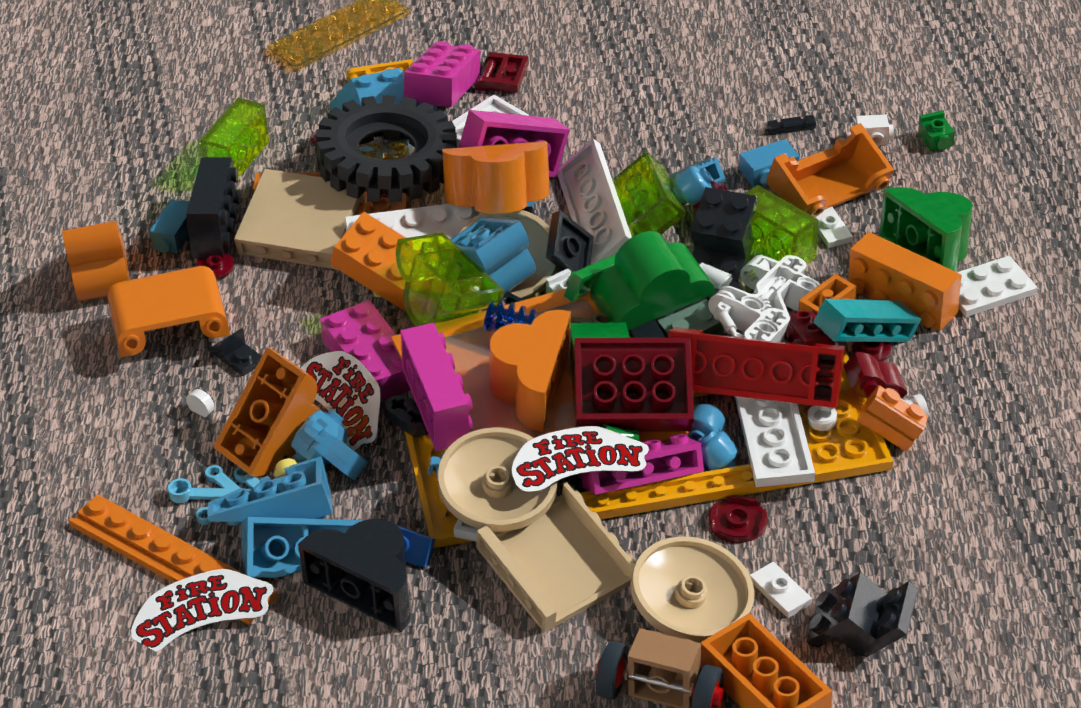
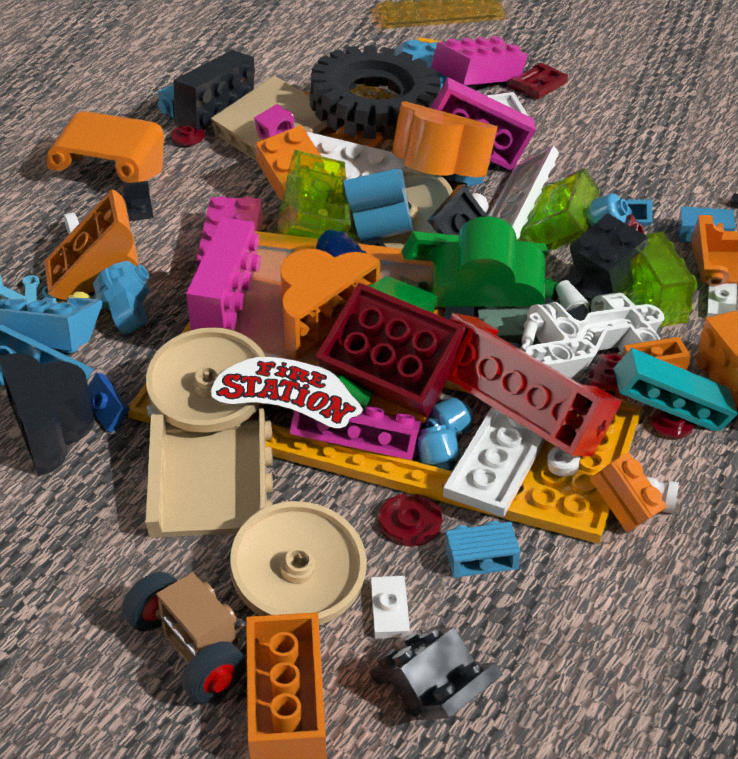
camera: 30 degrees right, 0 degrees up
(96, 259) = (96, 87): orange brick -> none
(238, 134) = (282, 51): clear neon green brick -> none
(318, 221) = (273, 121): none -> dark pink brick
(349, 391) = (180, 258): sticker -> none
(814, 513) = (482, 549): none -> dark azure brick
(867, 373) = (651, 449): dark red brick -> none

